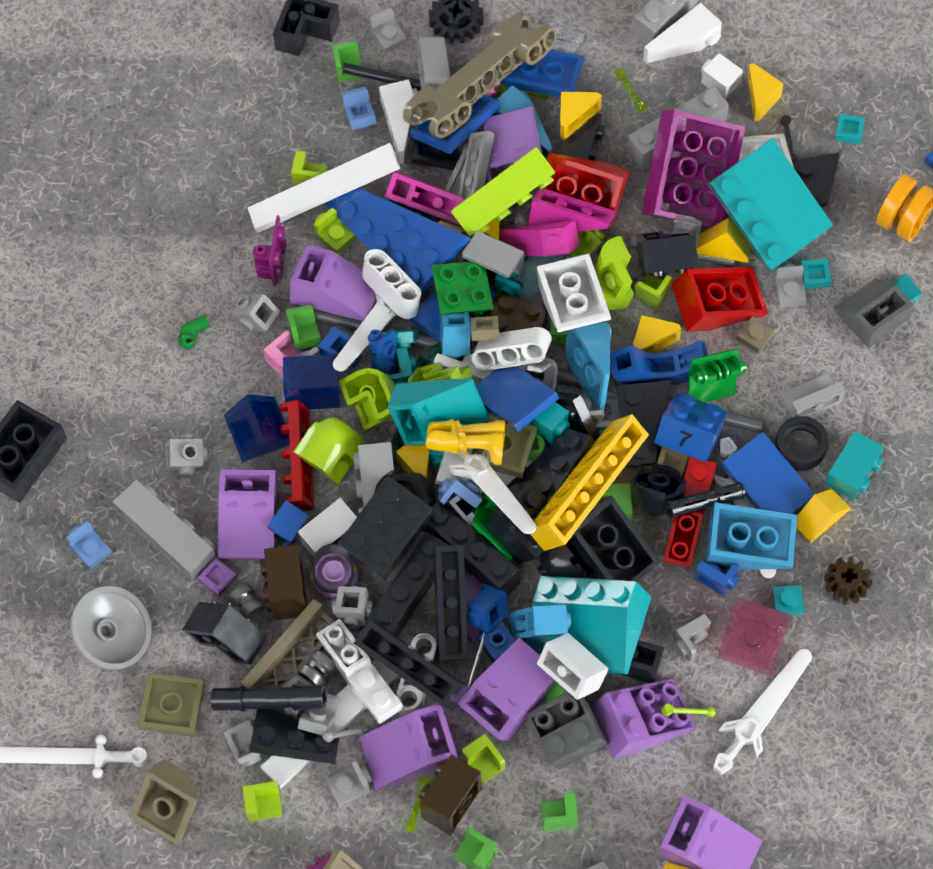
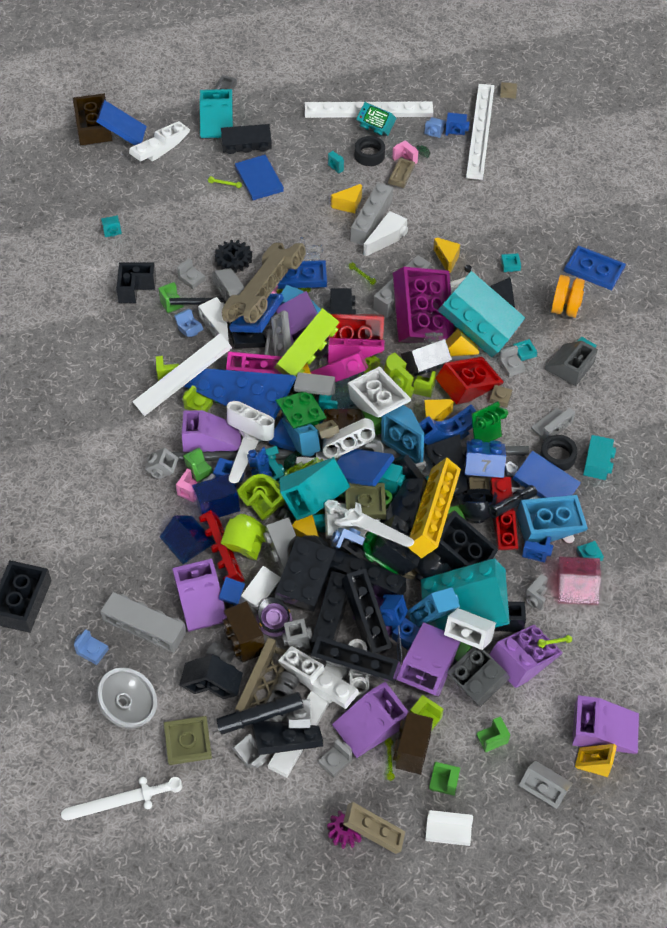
camera: 20 degrees left, 10 degrees down
(166, 801) = (207, 810): dark tan slope -> none
(177, 459) = (142, 567): light grey brick -> none
(190, 330) = (117, 488): green arm -> none
(217, 577) = (191, 644): medium lavender tile -> none
(262, 801) = (277, 789): lime panel -> none
(268, 257) = (159, 425): magenta hinge -> none
(328, 736) = (313, 727): light grey hinge -> none
(455, 438) = (335, 501): yellow piece -> none
(577, 109) = (335, 287): yellow slope -> none
(722, 75) = (417, 247): white brick -> none
(752, 724) = (599, 639): white sword -> none
(820, 514) = (589, 493): yellow slope -> none
(857, 586) = (624, 529): dark brown gear -> none

